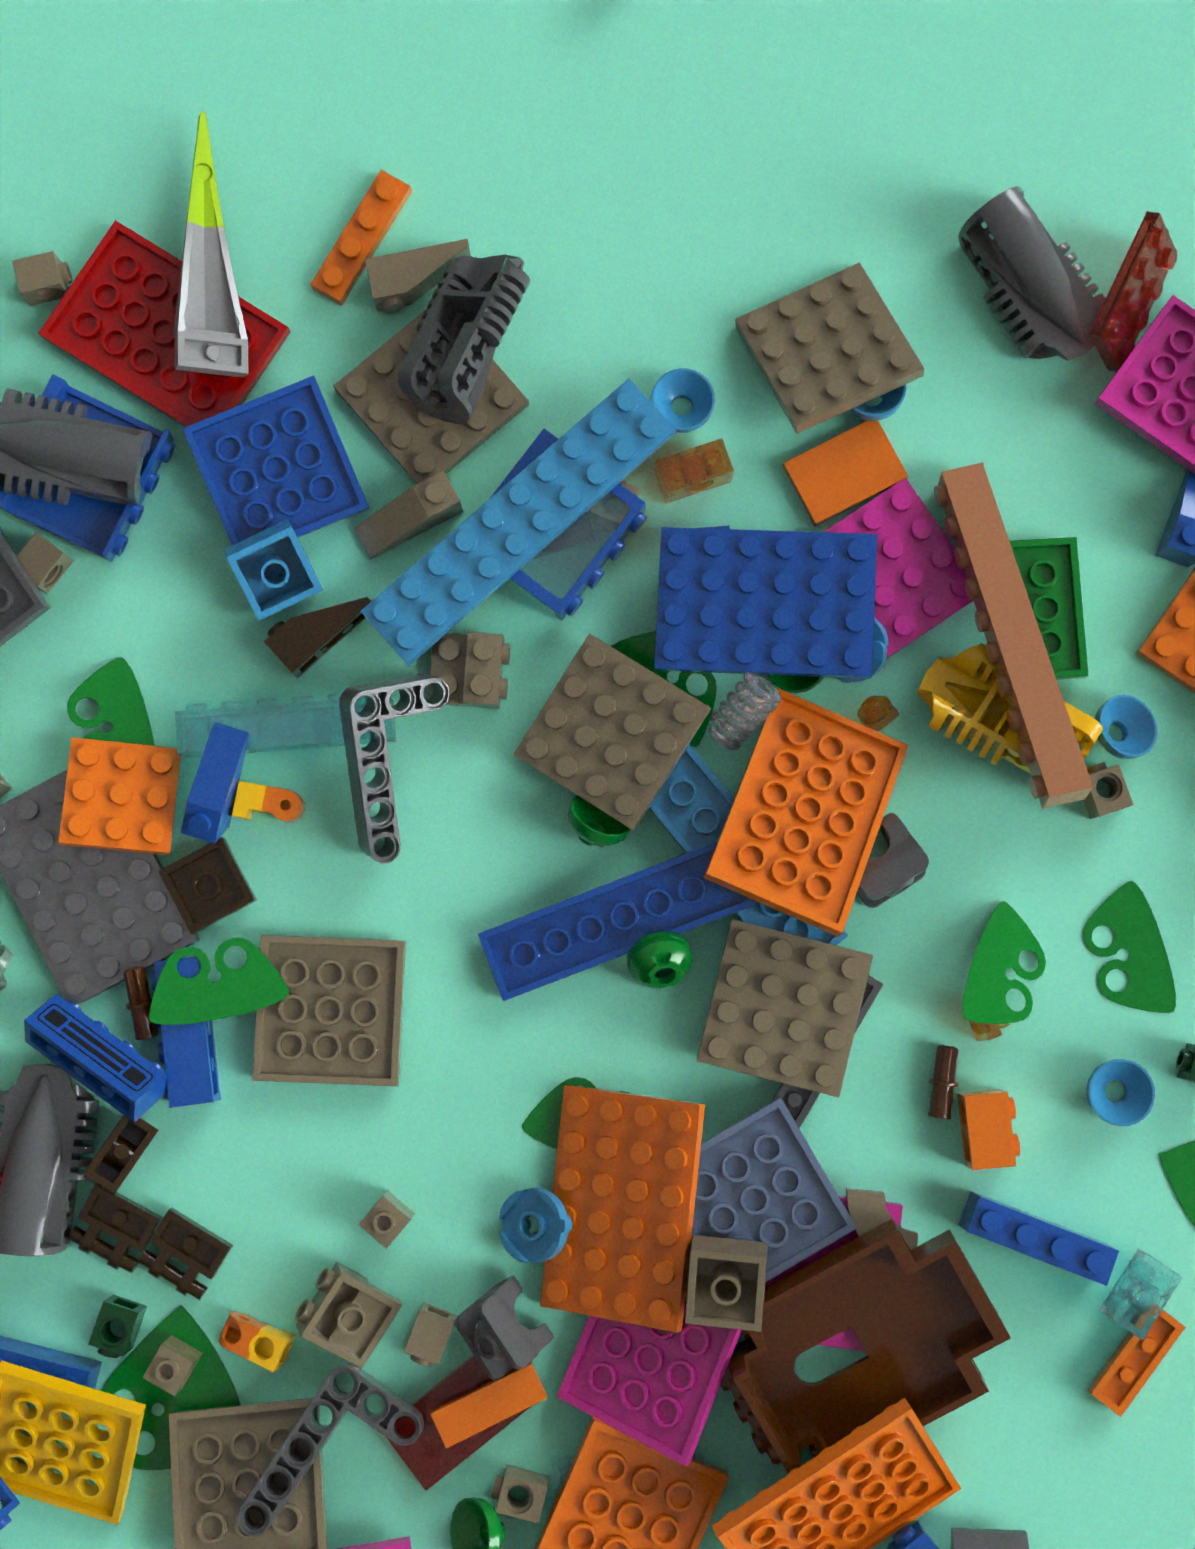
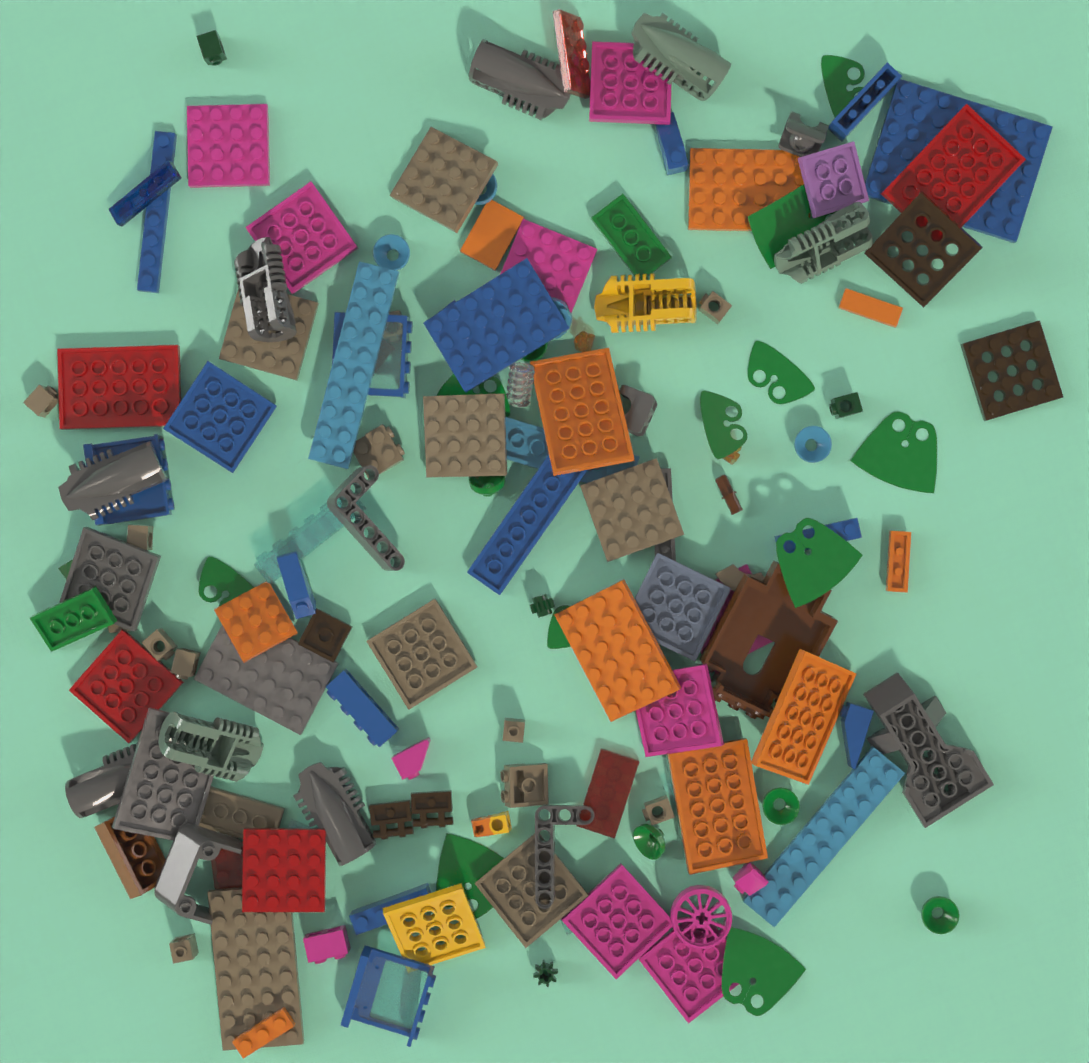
camera: 30 degrees left, 5 degrees up
(95, 1057) = (329, 747): blue brick -> none
(119, 1154) = (370, 783): dark brown brick -> none
(128, 1314) = (423, 852): dark green brick -> none
(139, 1002) = (332, 710): reddish brown axle -> none
(172, 1365) = (461, 860): dark tan brick -> none
(199, 1000) = (359, 689): green piece -> none
(204, 1158) = (411, 759): none -> dark pink slope
(208, 314) = (136, 365): light grey plate -> none
(266, 799) = (334, 573): leg -> none
(273, 570) = (253, 466): dark azure brick -> none
(311, 635) = (292, 485): dark brown slope -> none
(361, 237) = (181, 276): orange plate -> none
(388, 127) = (156, 219): none -> blue plate
(390, 88) = (145, 193): none -> clear blue plate
(408, 275) = (217, 280): dark tan slope -> none
(409, 515) = (298, 396): dark tan slope -> none
(430, 1335) = (569, 768): dark tan brick -> none
(488, 1405) = (616, 780): orange tile -> none
(497, 1335) = (600, 747): dark grey piece -> none
(552, 1219) = (592, 681): dark azure plate -> none
(553, 102) = (228, 145): none -> dark pink plate
(555, 1059) = (542, 605): none -> dark green gear
(578, 296) = (307, 234): none -> dark pink plate
(659, 952) = (556, 523): green piece -> none
(693, 471) = (419, 283): clear orange brick -> none
(726, 1283) = (686, 652): dark tan slope -> none
(988, 1129) = (762, 502): orange brick -> none
(1012, 637) = (622, 263): nougat brick -> none
(1016, 1296) = (823, 569): none -> green piece
(1134, 721) = (707, 263): dark azure piece -> none
(1140, 1294) = (880, 530): clear light blue brick -> none

